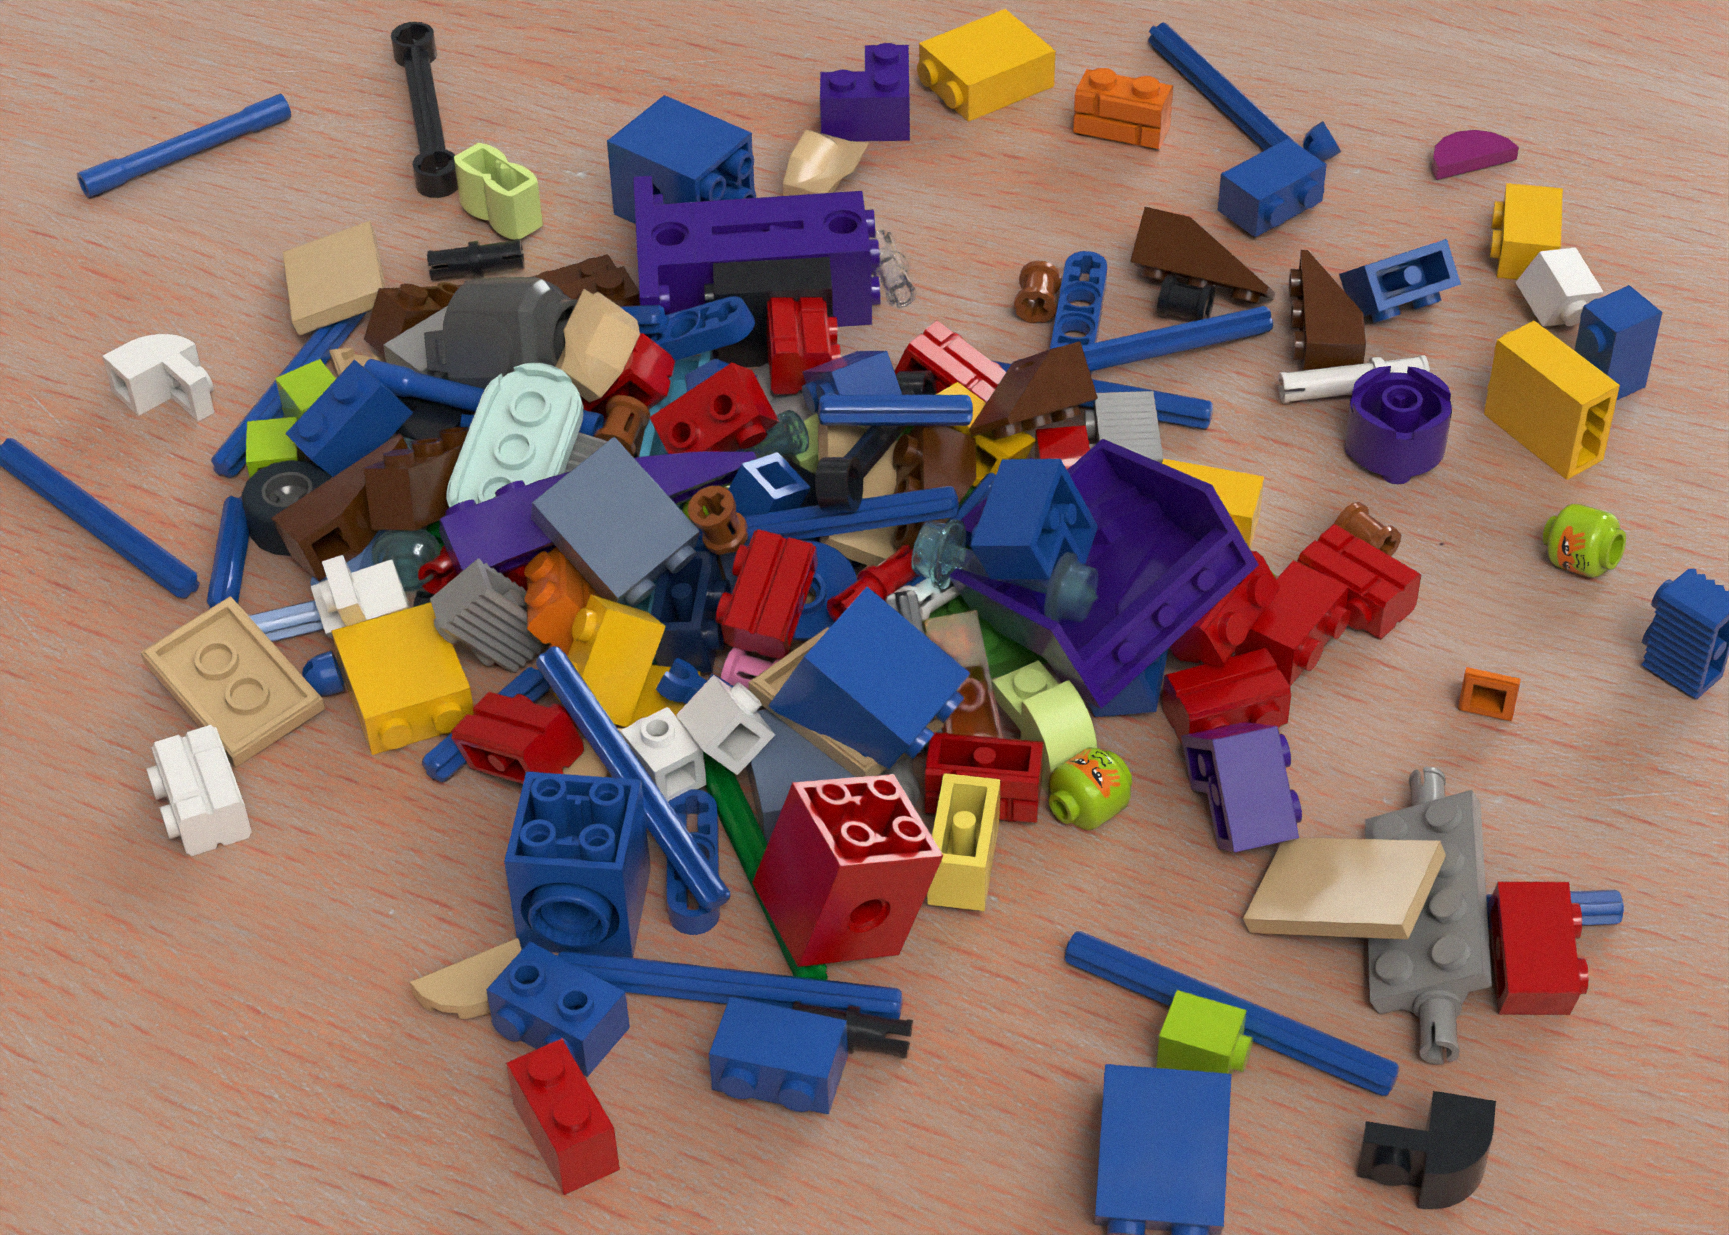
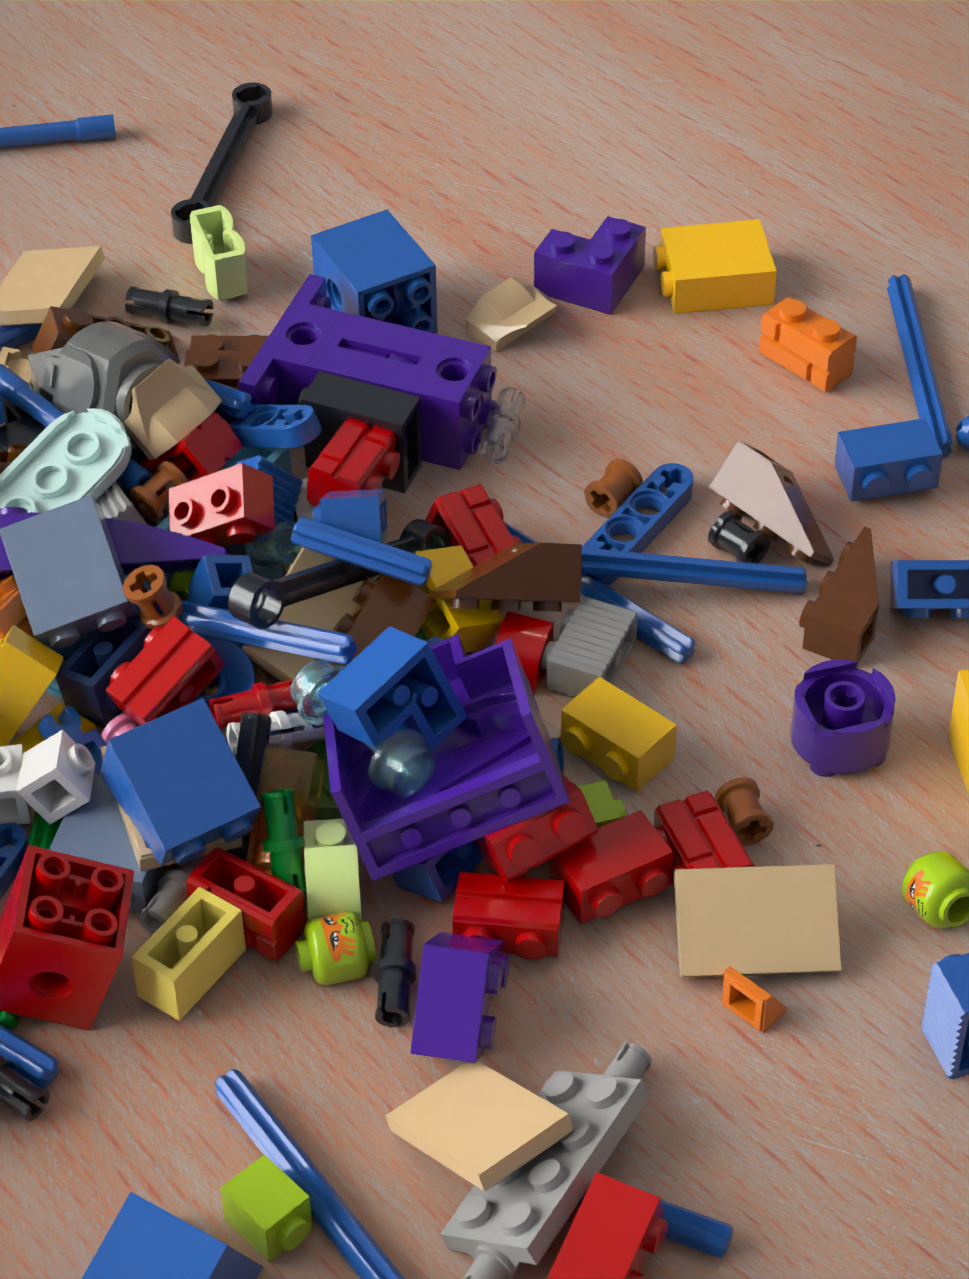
camera: 25 degrees right, 0 degrees up
(988, 700) = (283, 837): none -> green pin
(1159, 790) = (395, 972): none -> black pin
(1337, 380) = (804, 655): white pin -> none
(1453, 621) = (757, 920): none -> tan tile

